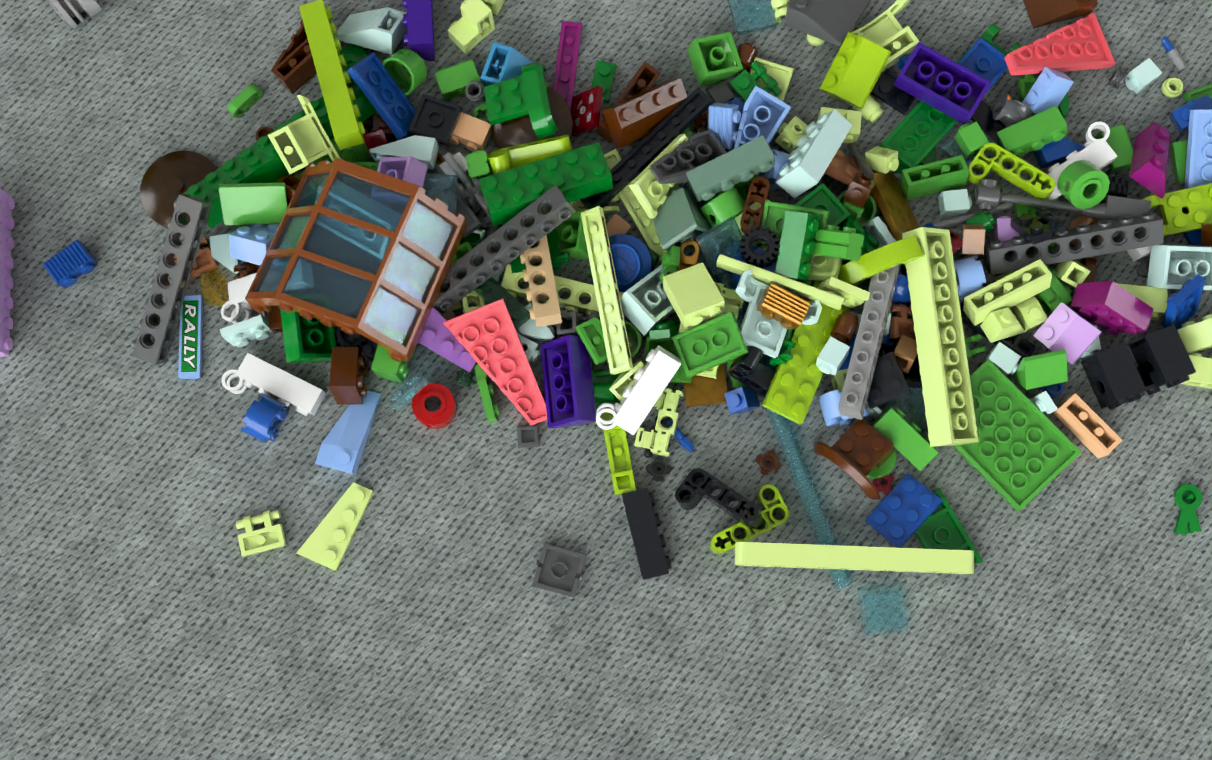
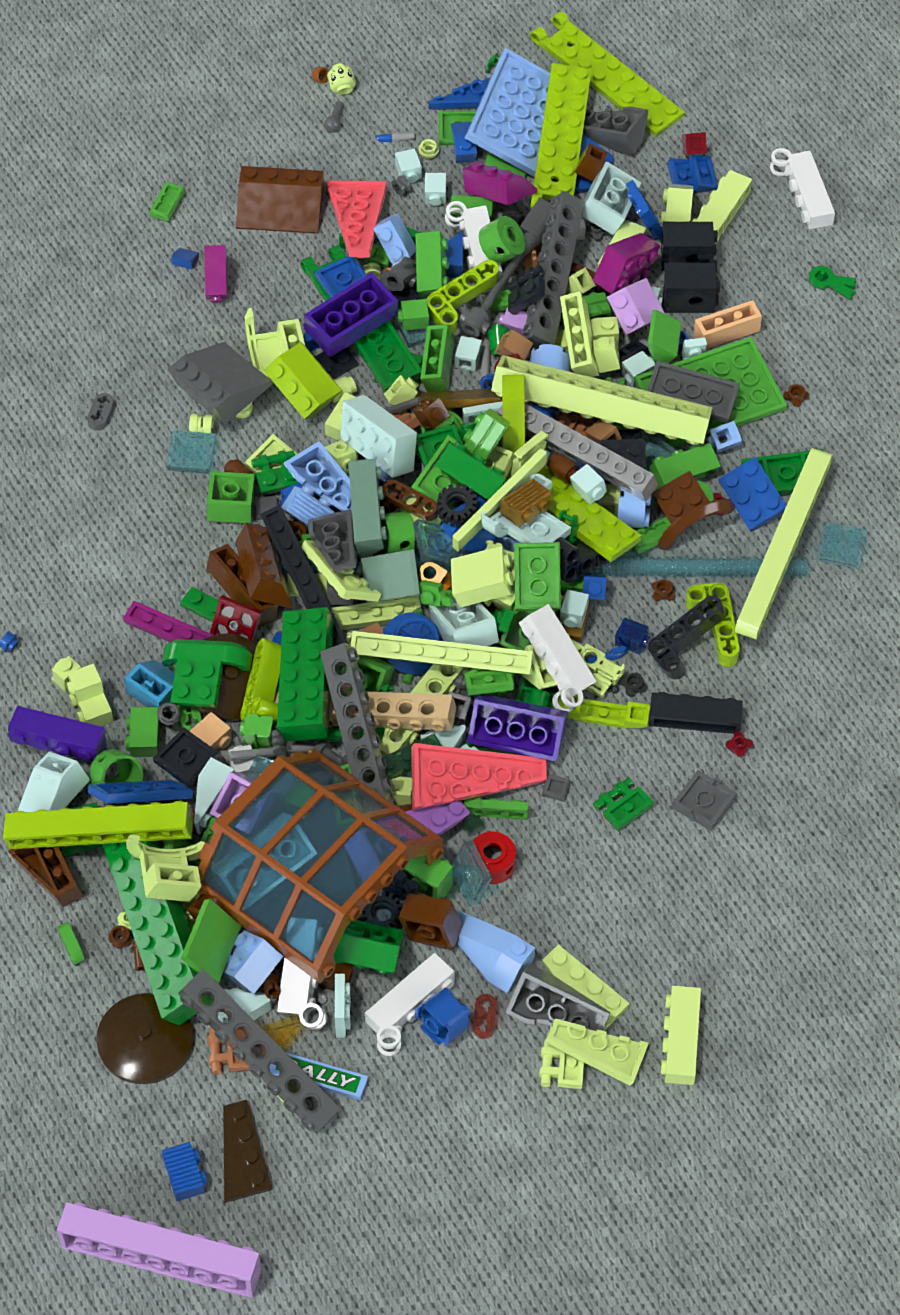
camera: 70 degrees left, 20 degrees down
(98, 306) = (243, 1159): none -> dark brown wing
(277, 563) = (605, 1052): none -> yellowish green wing
(284, 447) = (490, 1016): none -> clear red beam
(315, 497) = (544, 998): none -> dark grey wedge
(317, 626) = (682, 1035): none -> yellowish green brick
(528, 506) = (627, 808): none -> green plate
(627, 577) = (739, 750): none -> dark red plate
(705, 451) = (632, 636): none -> clear blue brick
(707, 390) = (574, 609): none -> light aqua brick
(816, 429) = (651, 535): none -> bright green plate
(960, 472) = (728, 431): none -> light blue brick
(994, 418) = (696, 388): none -> dark grey plate
(1008, 87) = (372, 268): none -> yellowish green bush
(1043, 516) = (796, 389): none -> reddish brown plate
(1127, 108) = (435, 188): none -> light aqua brick

